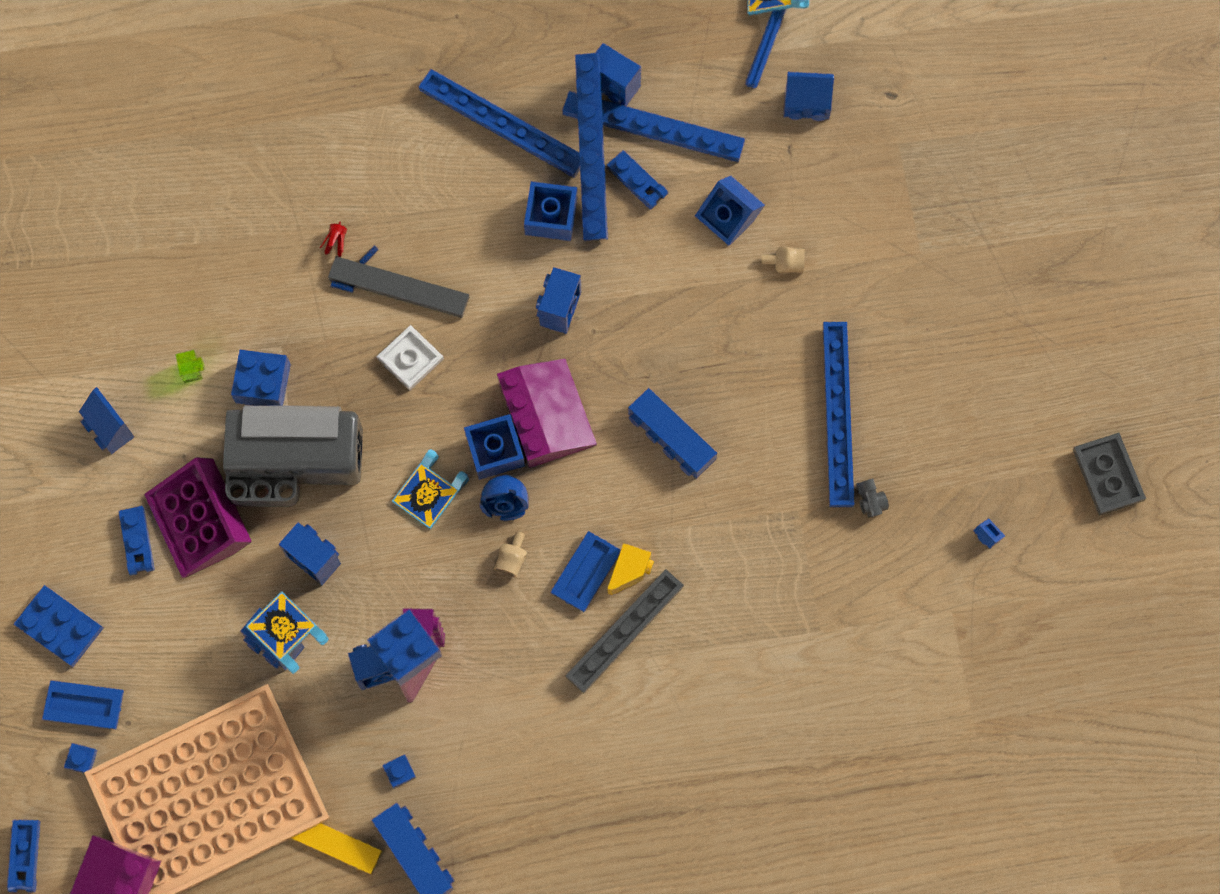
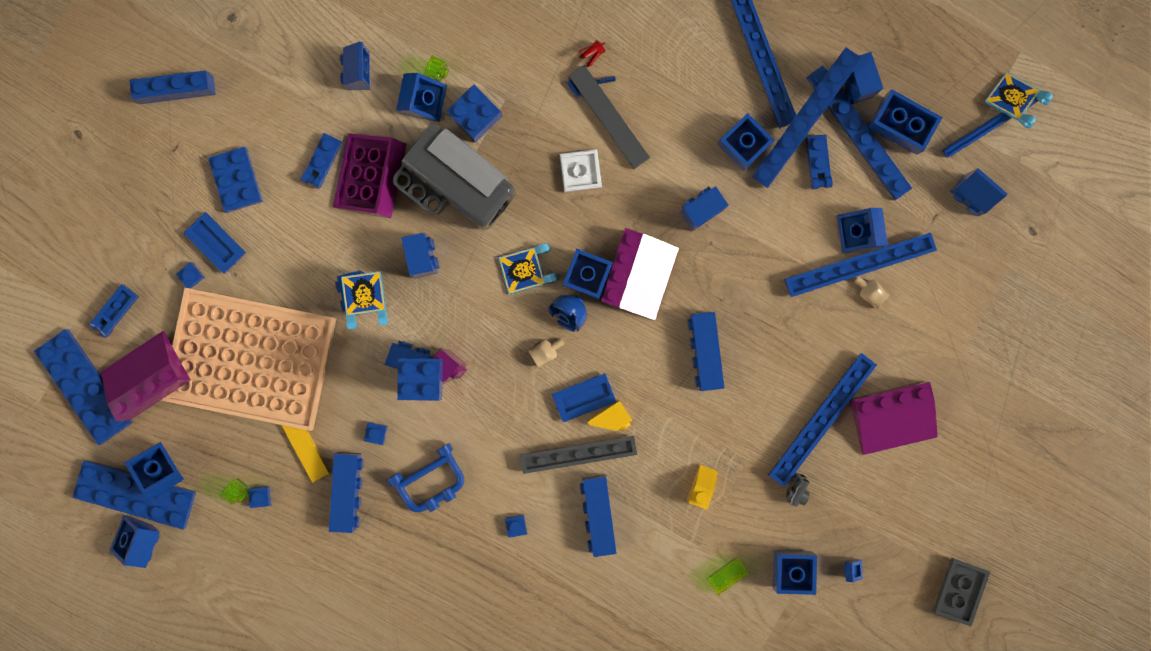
camera: 35 degrees right, 15 degrees up
(193, 403) = (421, 97): none -> blue slope
(513, 797) = (447, 494): none -> blue bar
(618, 753) = (516, 526): none -> blue plate
(688, 84) = (904, 122): none -> blue brick
(694, 675) = (599, 516): none -> blue brick
(753, 244) = (860, 265): none -> blue plate
(775, 568) = (702, 487): none -> yellow slope
(870, 635) = (727, 575): none -> clear neon green plate
(905, 358) = (895, 417): none -> magenta slope
(932, 577) = (795, 572): none -> blue brick

